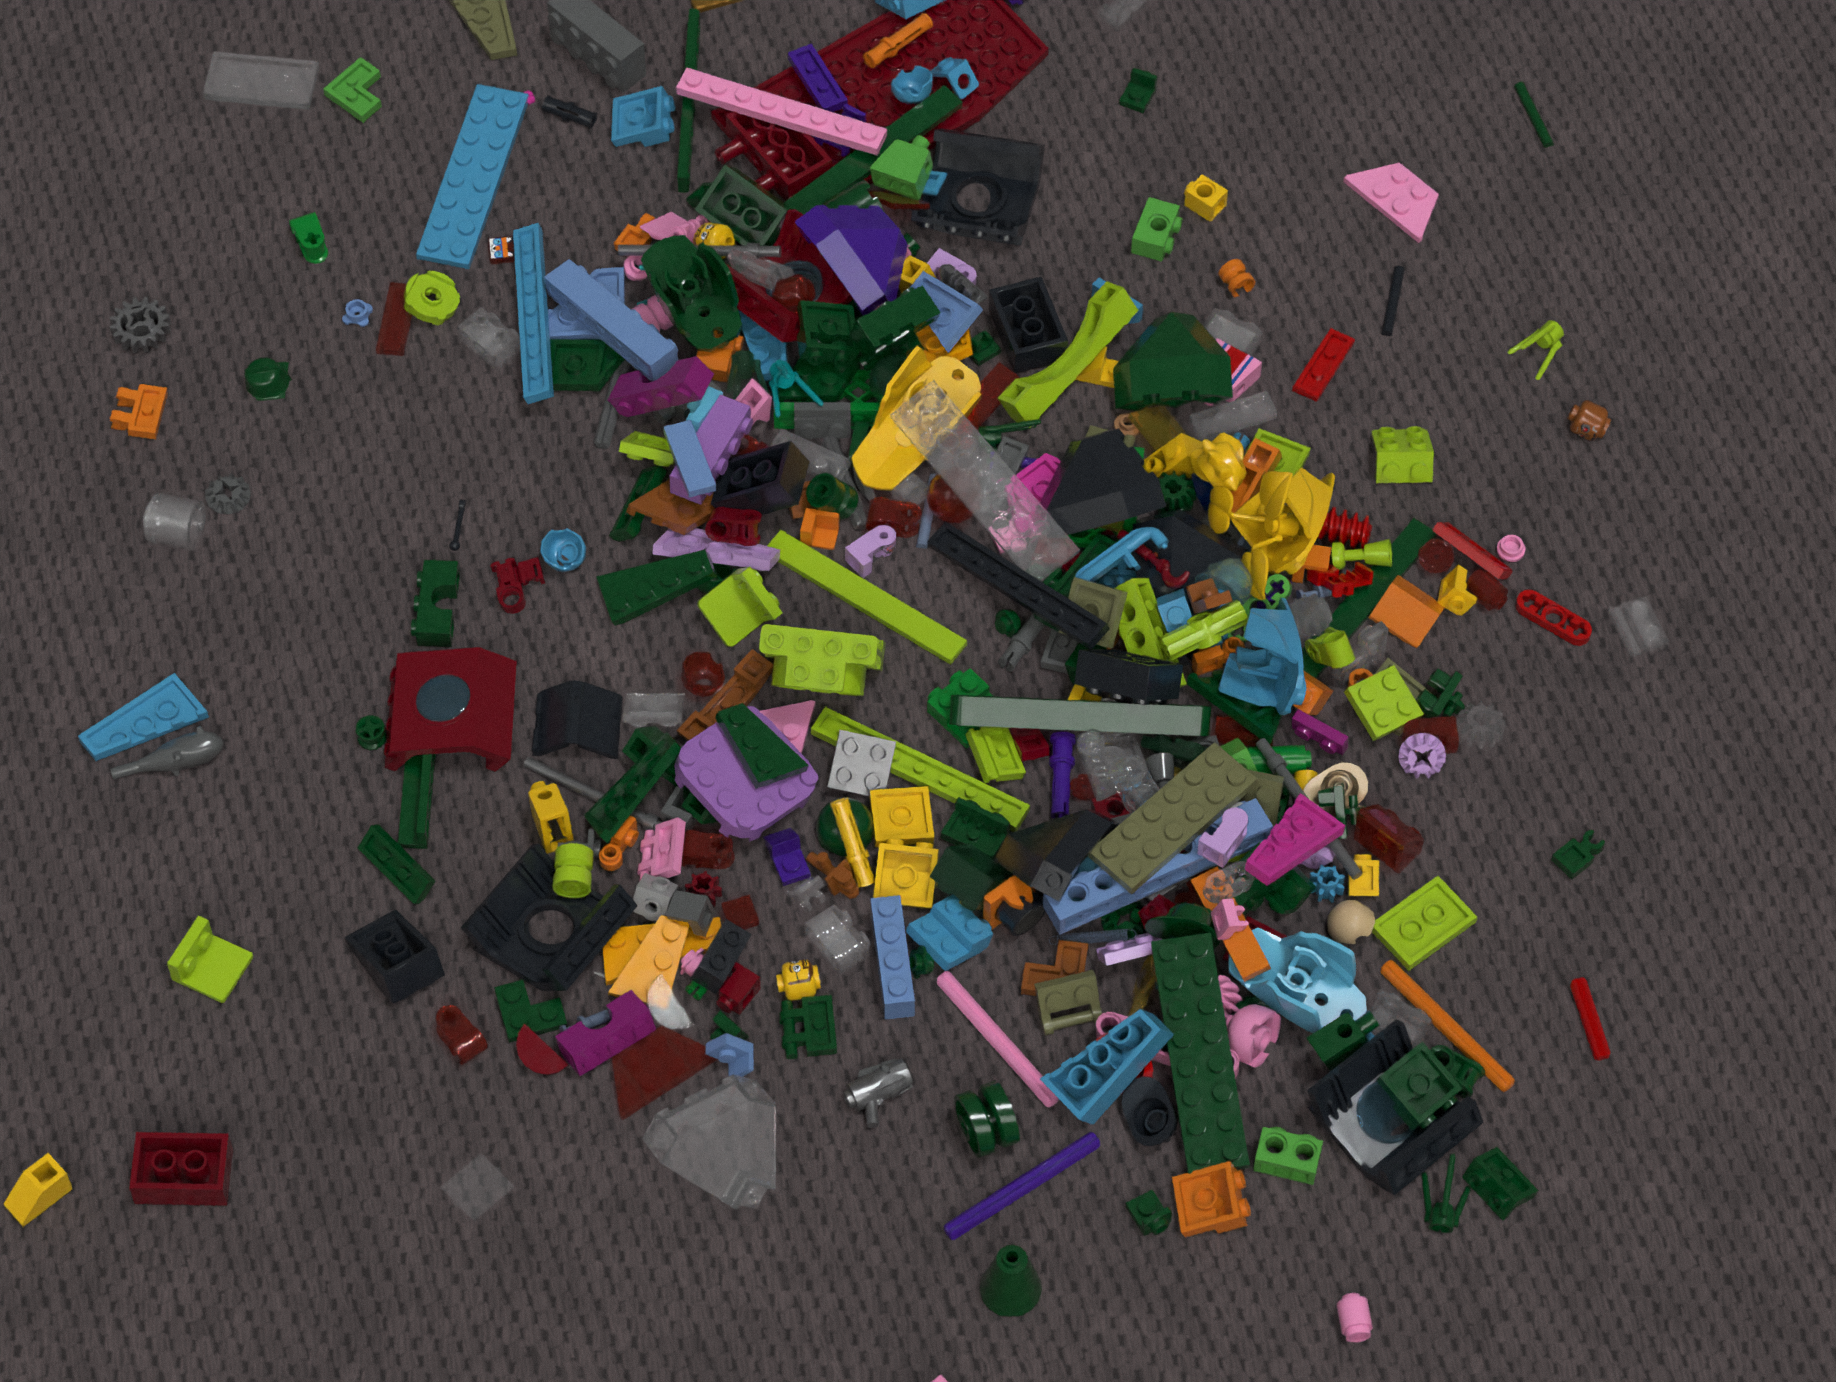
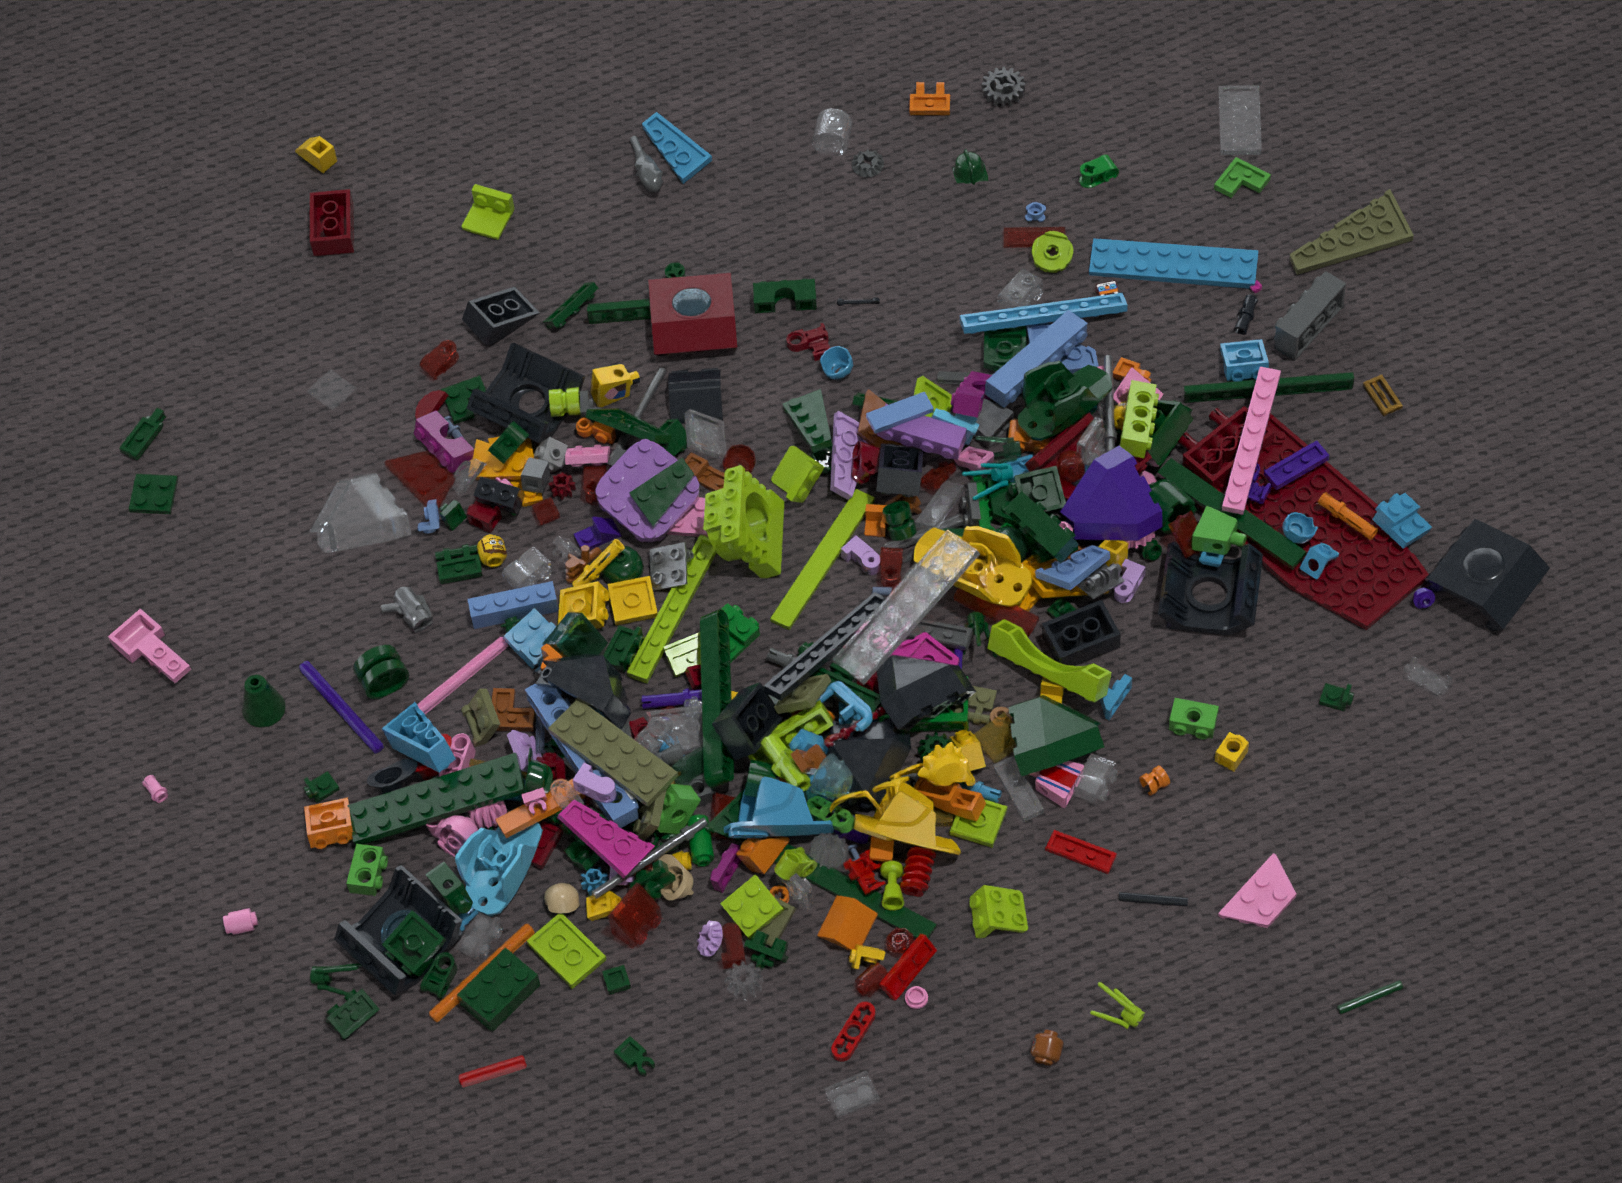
camera: 90 degrees right, 0 degrees up
(633, 933) = (508, 442): none -> dark green plate
(741, 211) = (1138, 418): none -> lime brick
(1217, 666) = (756, 772): none -> dark green brick
(1469, 868) = (616, 979): none -> dark green plate
(1481, 999) = (498, 989): none -> dark green brick

